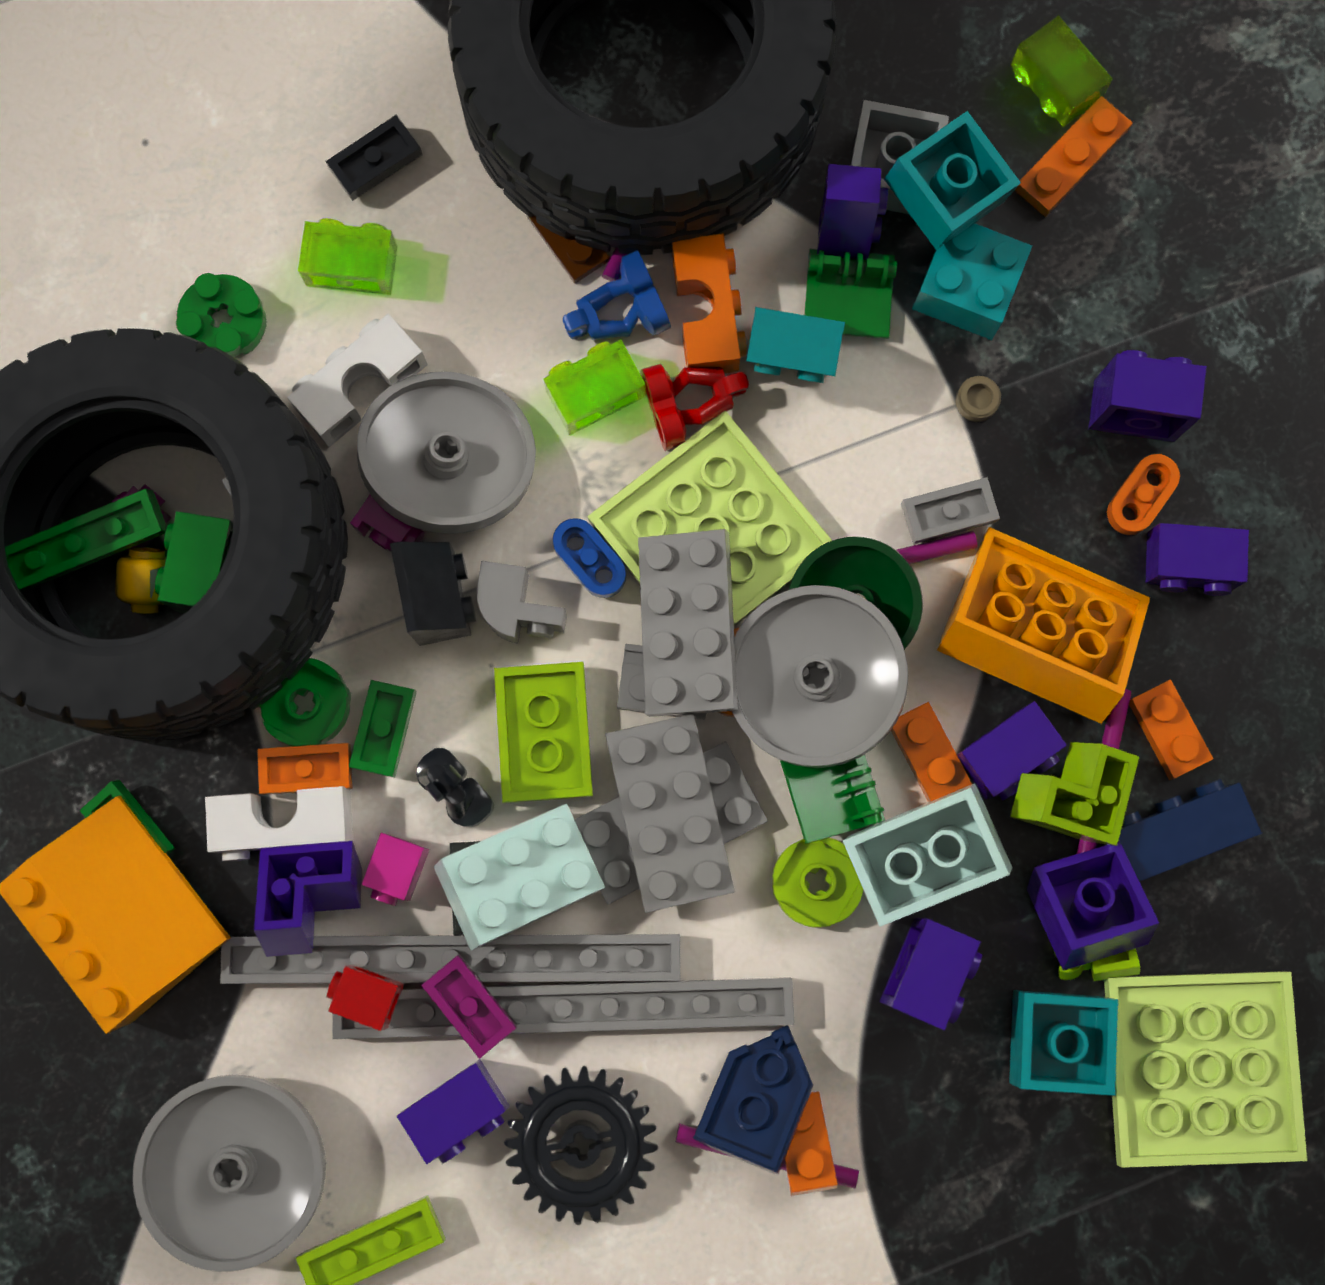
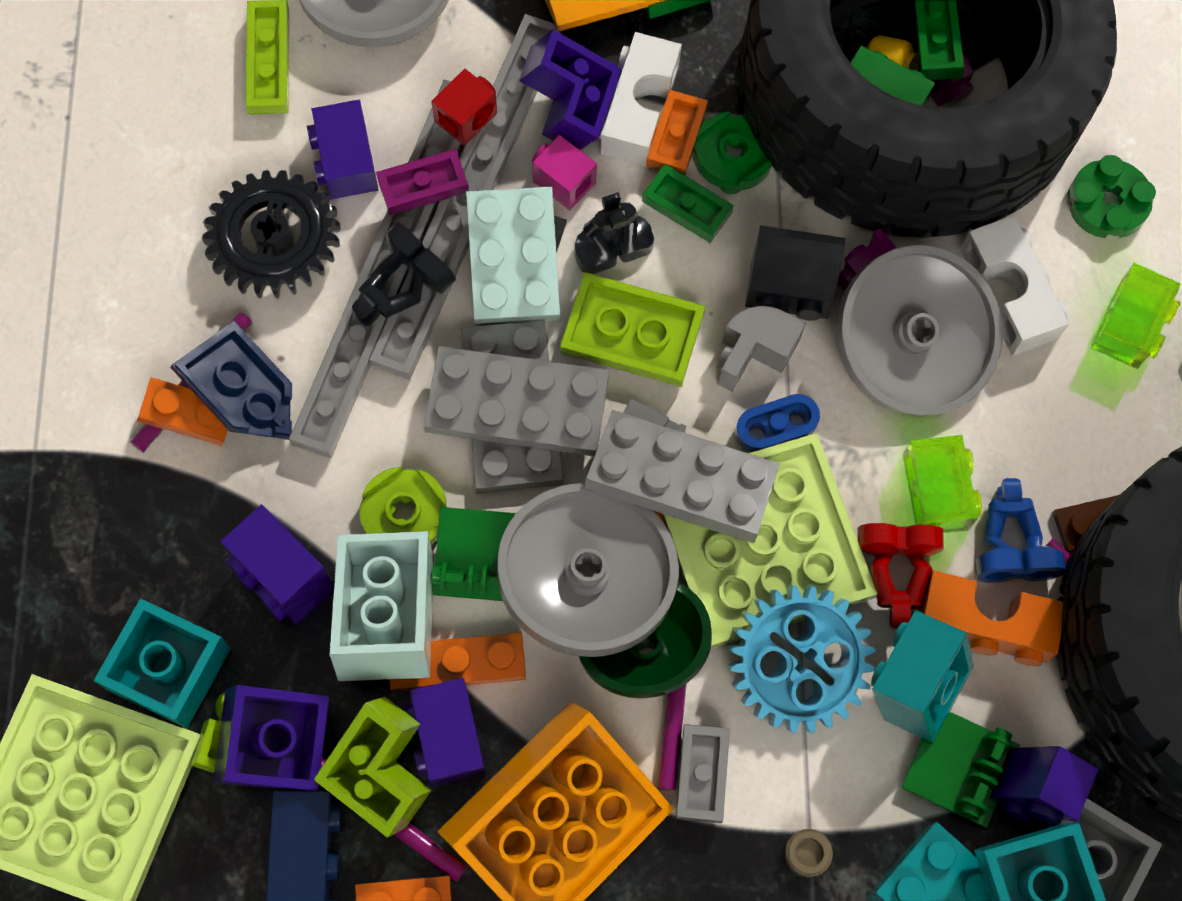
camera: 110 degrees right, 10 degrees down
(558, 988) = (426, 268): none -> black piece
(851, 470) = (777, 690): none -> medium azure gear

